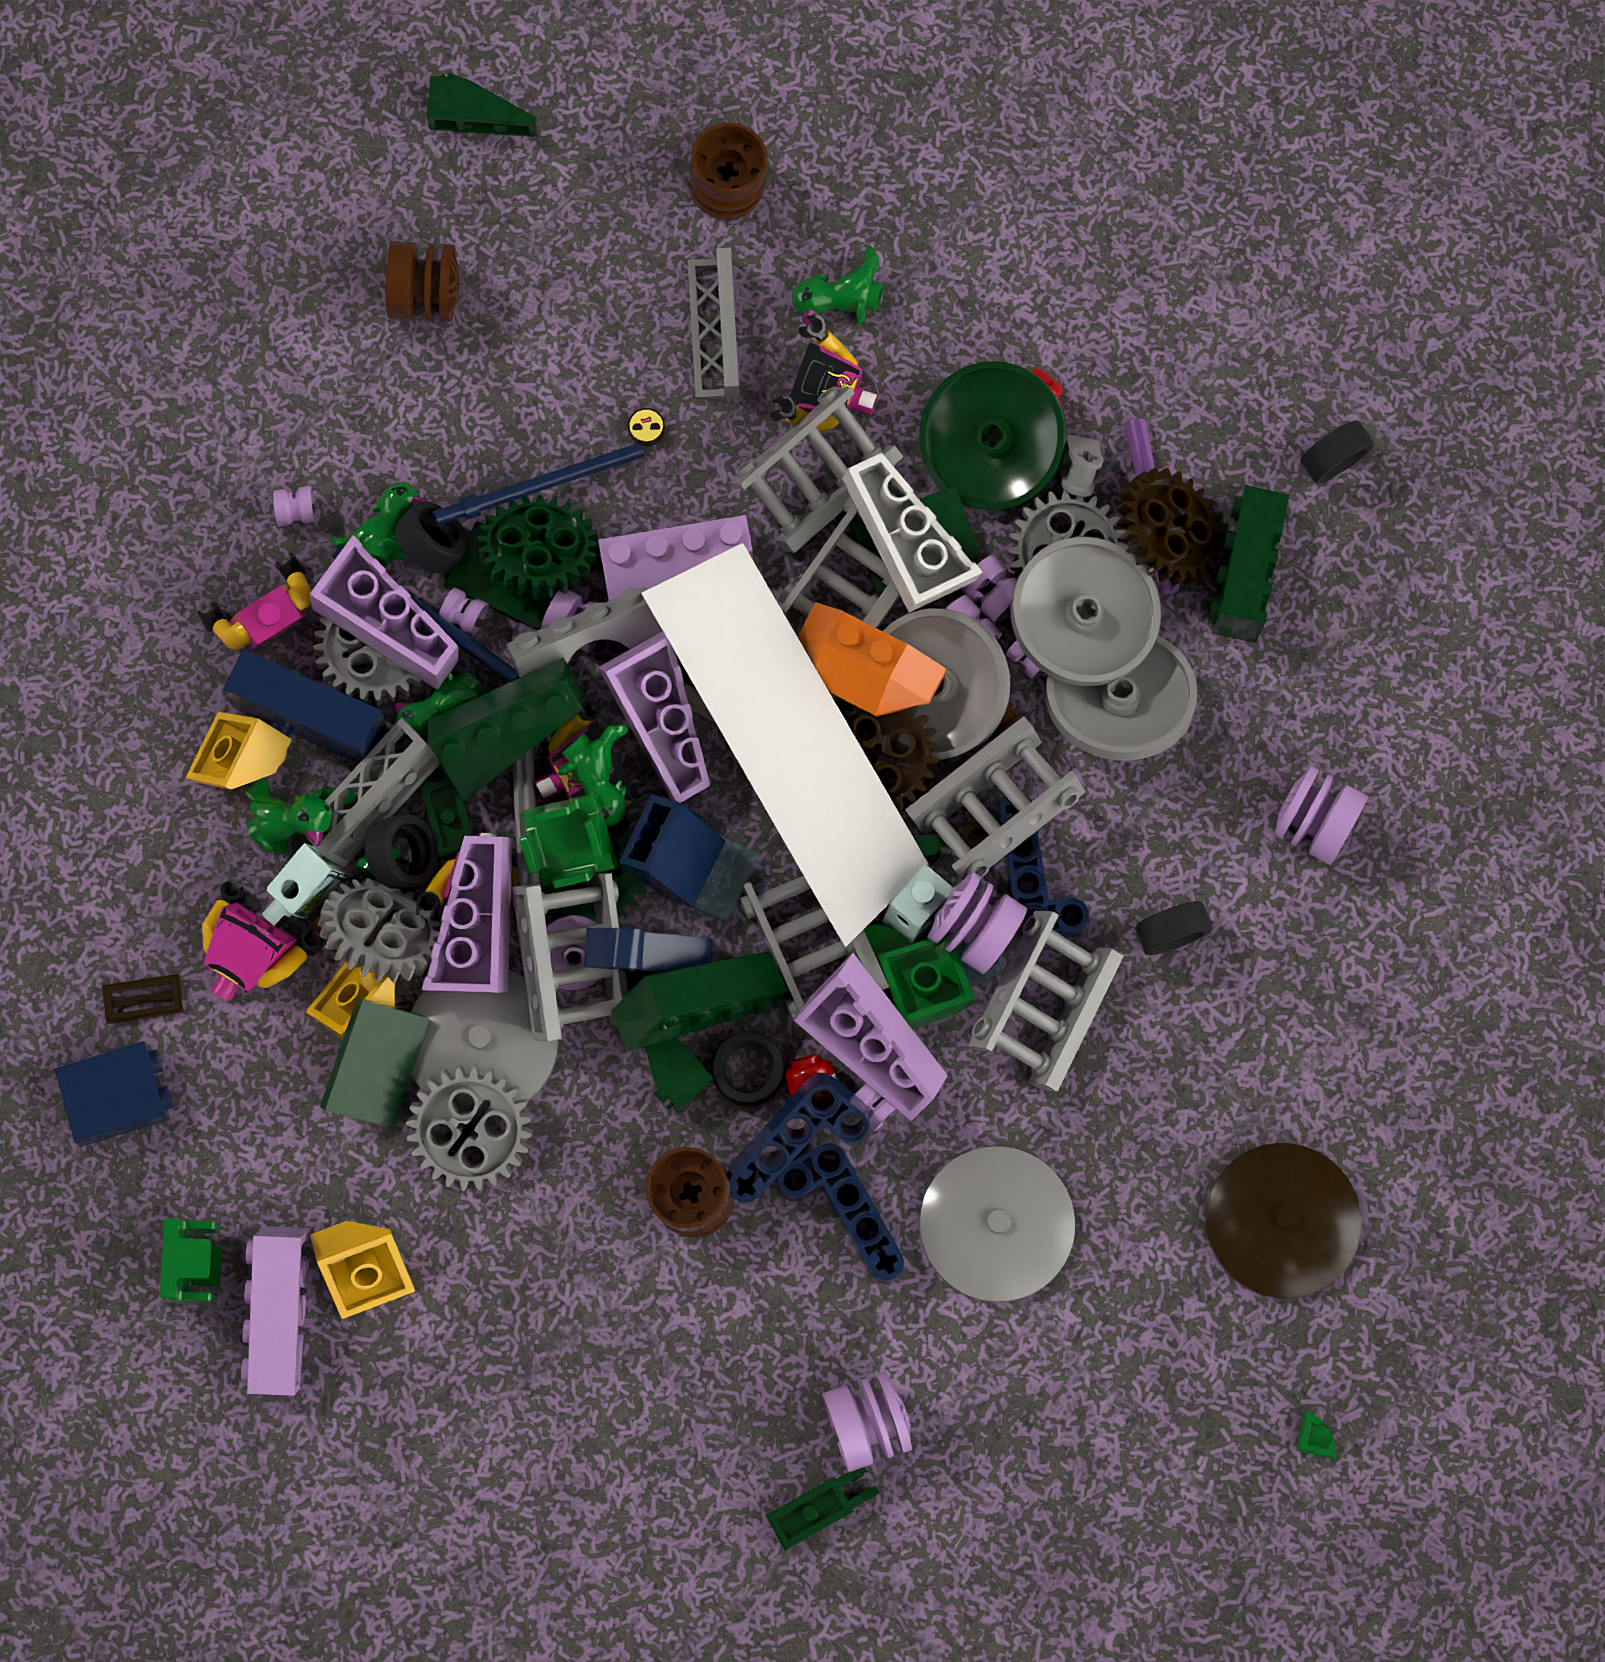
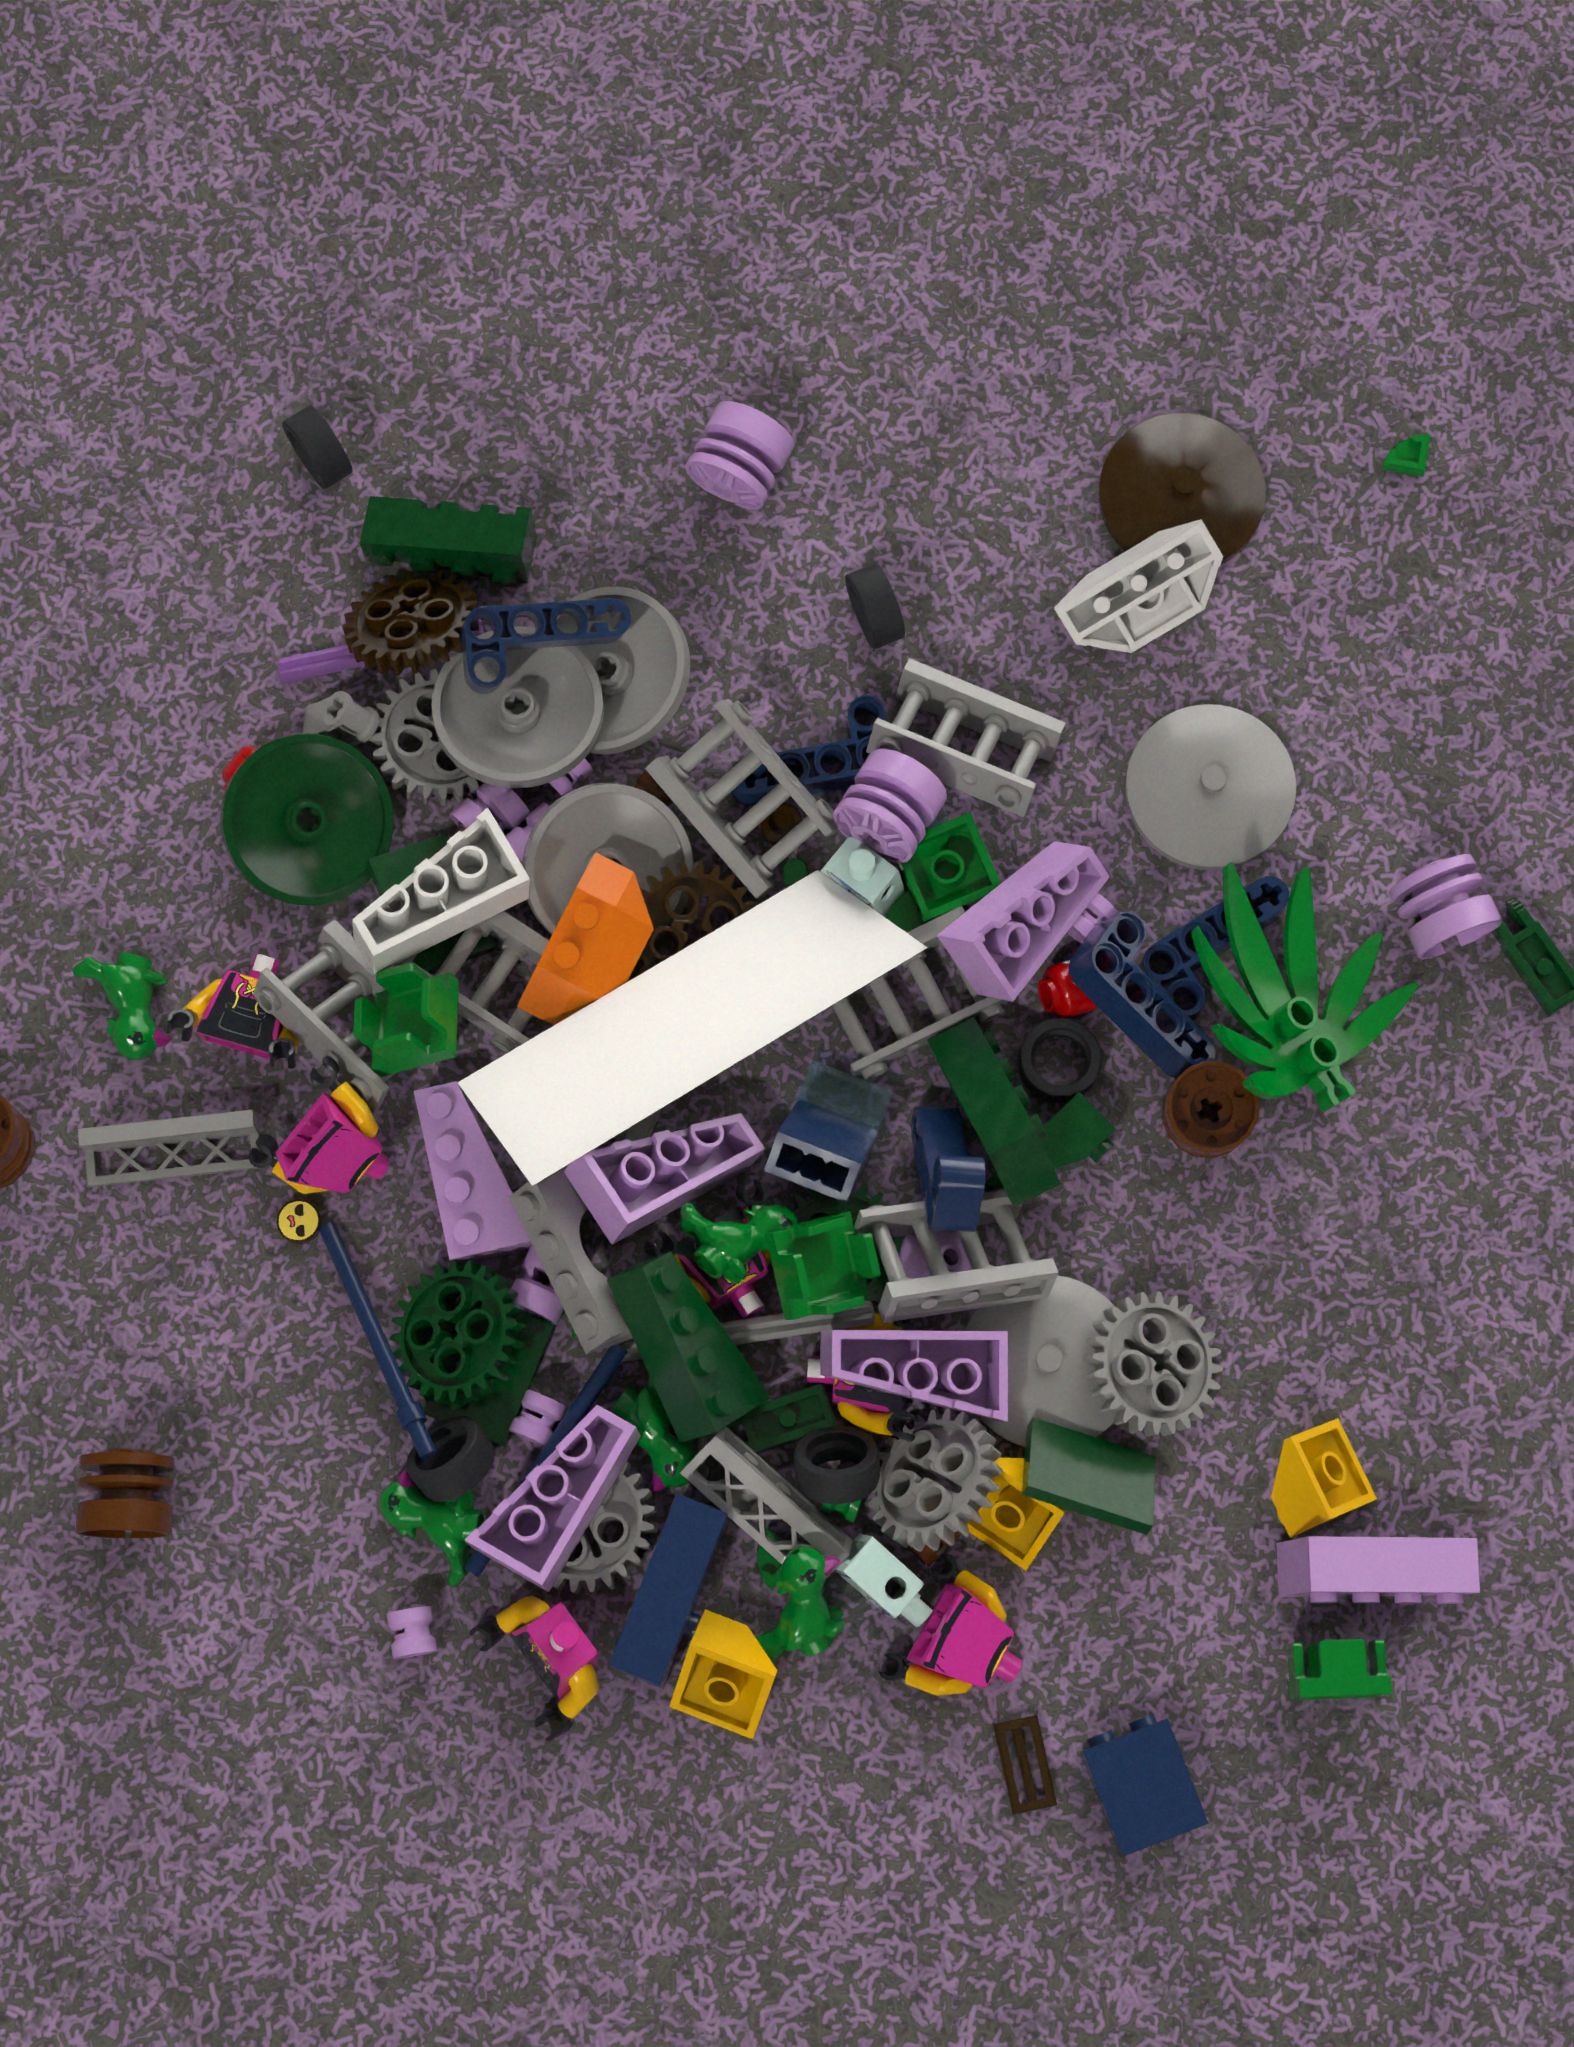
camera: 90 degrees left, 0 degrees up
(704, 446) = (330, 1143): none -> dark pink torso
(755, 1278) = (1299, 1044): none -> green plant
(799, 508) = (410, 1020): none -> green panel
(1146, 631) = (546, 632): none -> dark blue beam
(1180, 1167) = (1143, 590): none -> white wedge

